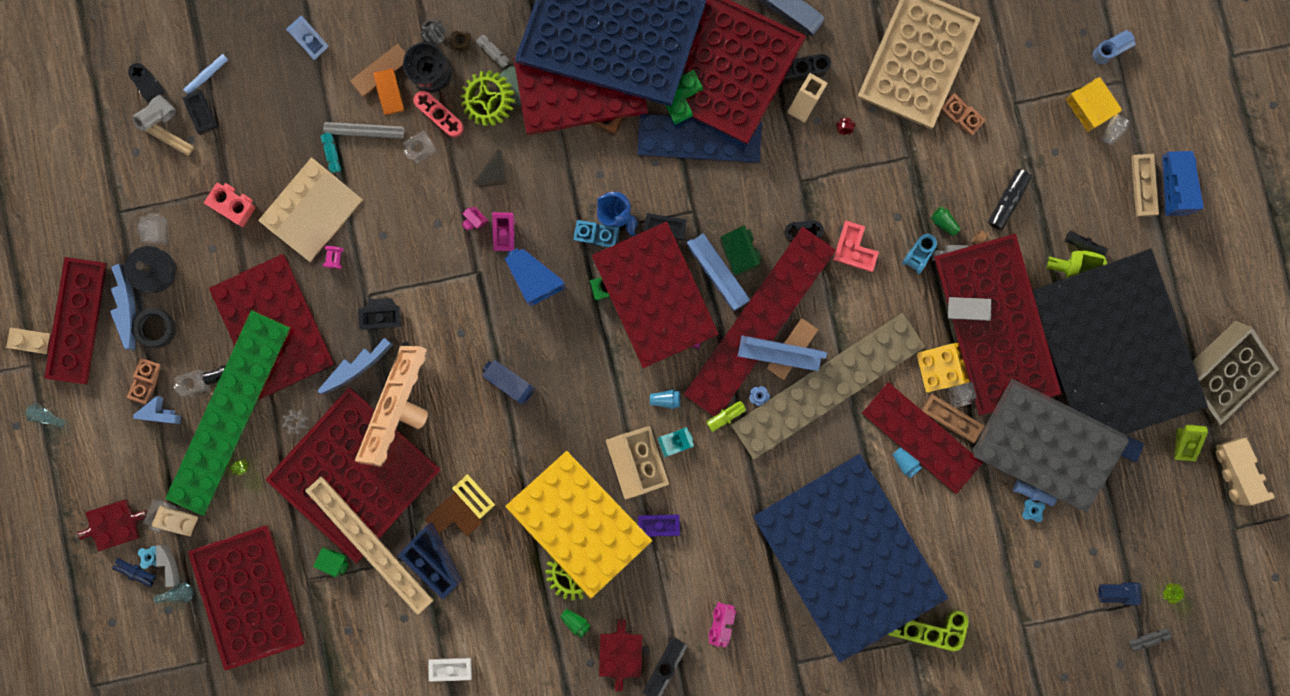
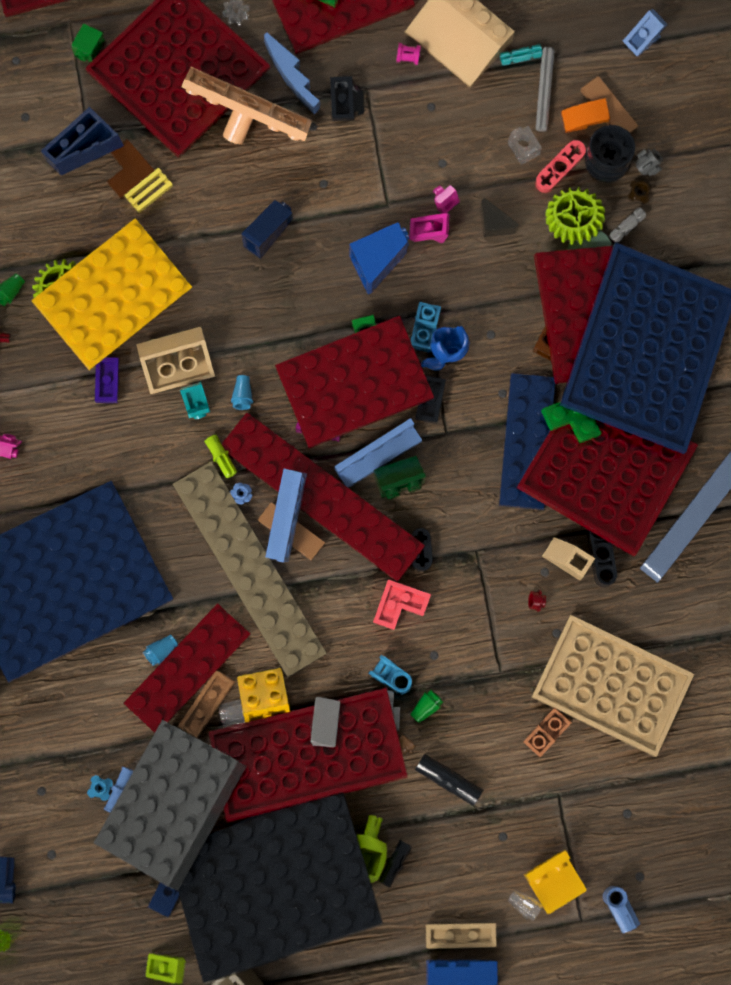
camera: 85 degrees right, 5 degrees down
(369, 545) = (101, 80): tan plate -> none

